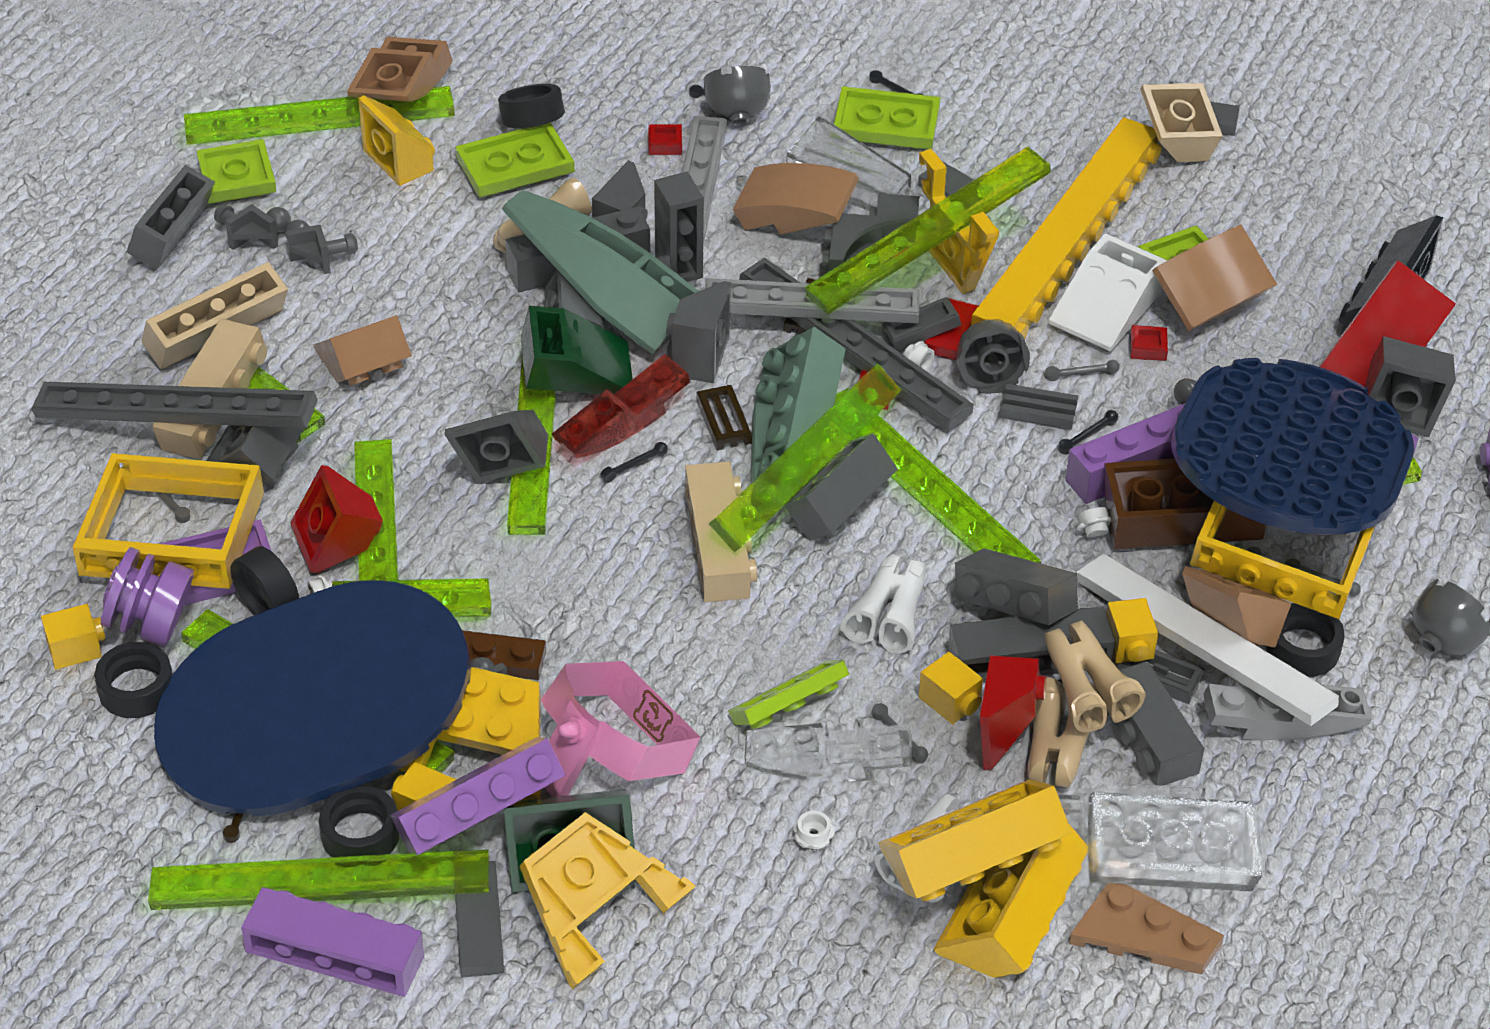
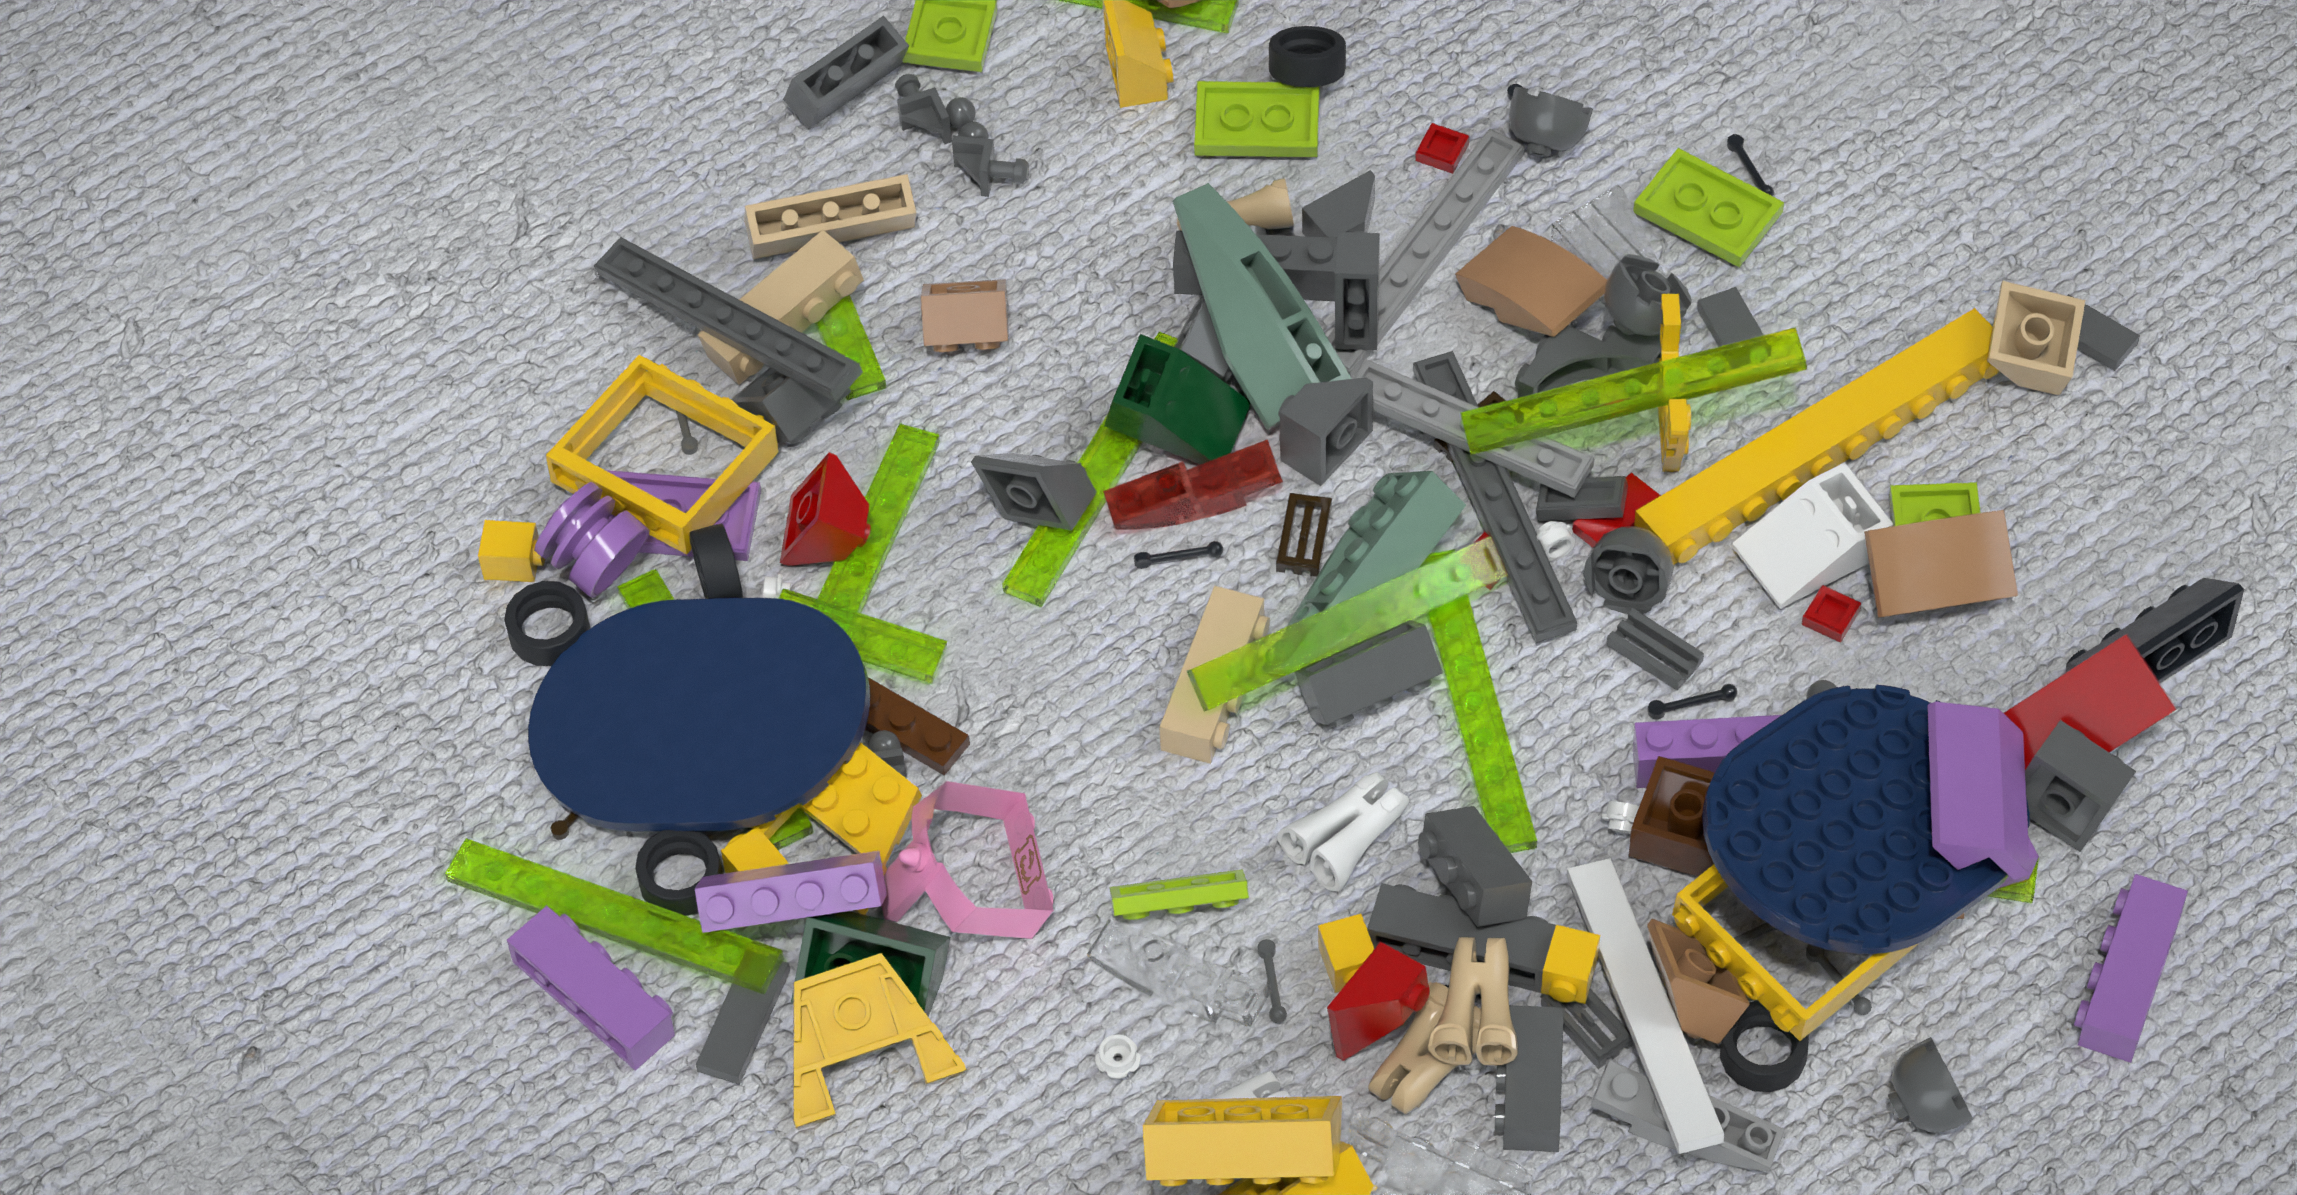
camera: 30 degrees right, 10 degrees up
(893, 173) = (1635, 295): none -> dark grey cylinder
(1053, 373) = (1699, 612): dark grey hinge -> none
(1358, 396) = (1978, 787): none -> medium lavender slope

